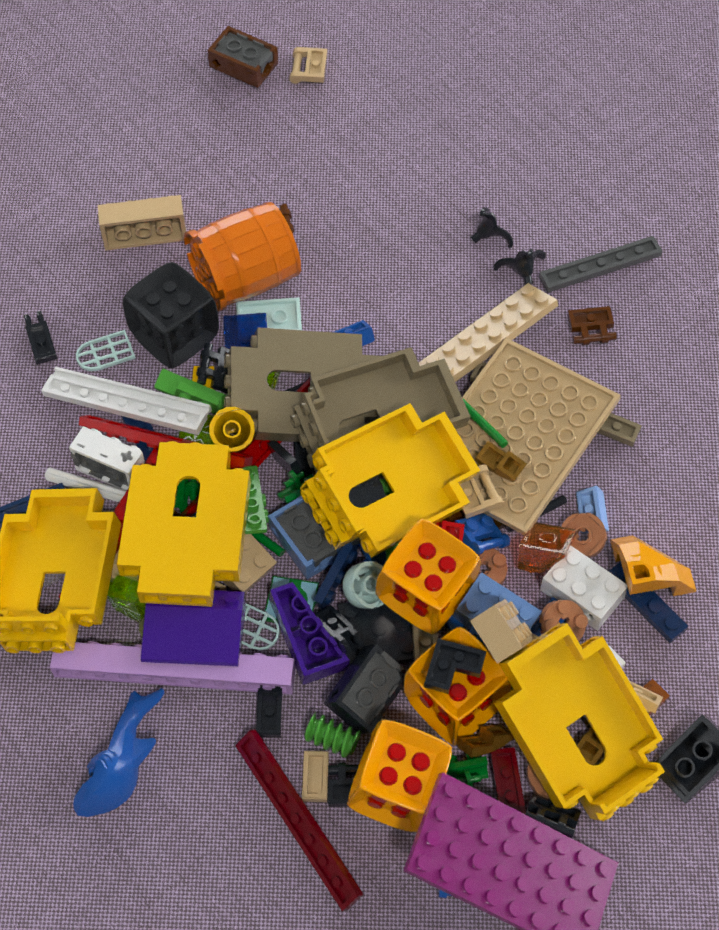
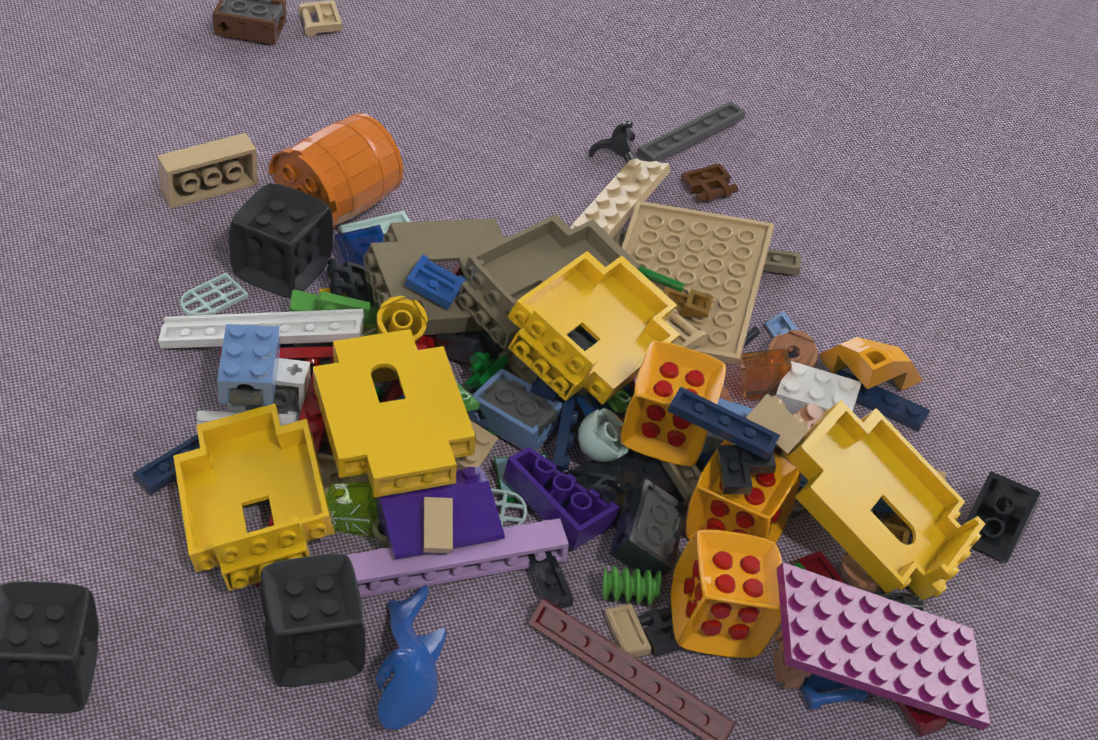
camera: 25 degrees left, 15 degrees down
(40, 339) = (134, 296): black hinge -> none
(51, 702) = (313, 620): none -> black piece
(86, 446) = (248, 364): none -> medium blue piece
(182, 642) = (438, 525): none -> tan tile
(270, 400) = (434, 282): none -> blue plate
(446, 622) = (723, 423): none -> dark blue plate
(488, 228) = (571, 118): black piece -> none
(489, 740) = (795, 549): pearl gold slope -> none

